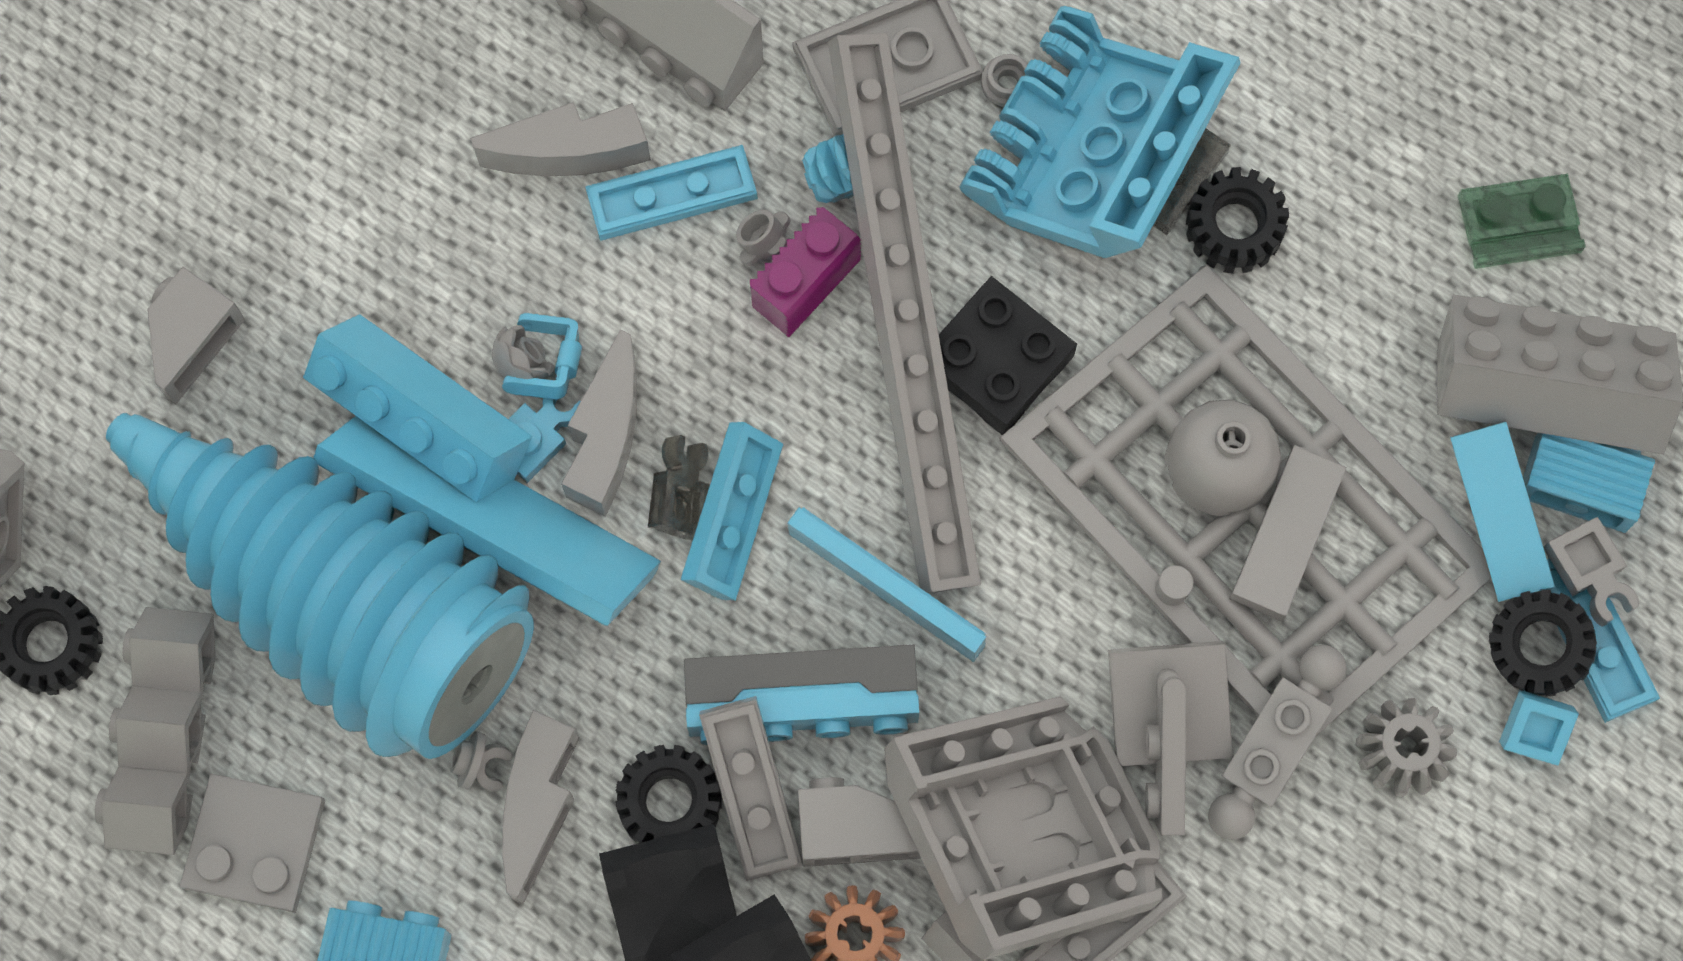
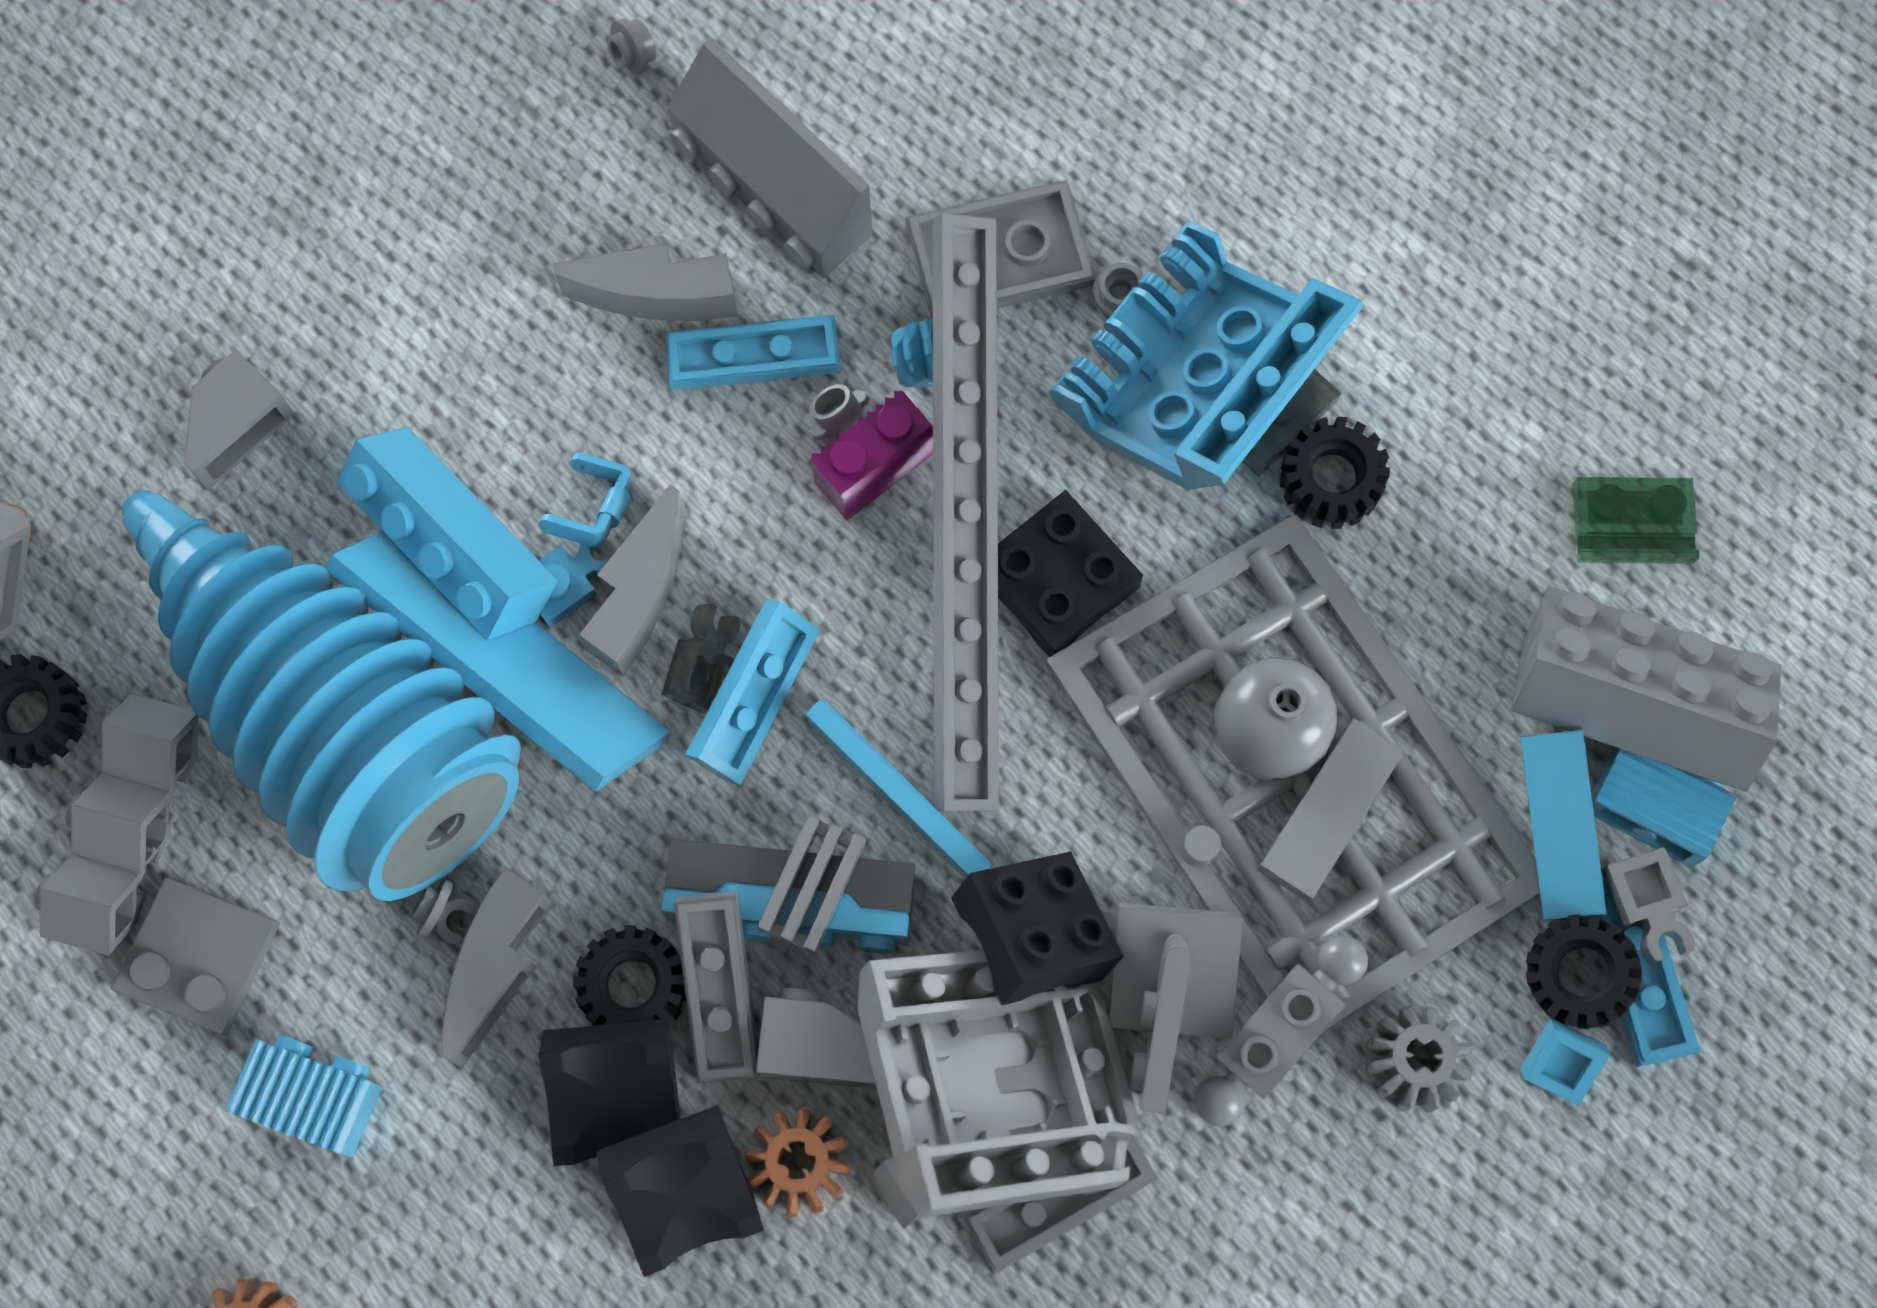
camera: 10 degrees right, 0 degrees up
(520, 355) = (564, 494): light grey plate -> none
(835, 631) = (833, 836): none -> light grey tile
(1038, 683) = (1037, 926): none -> black brick

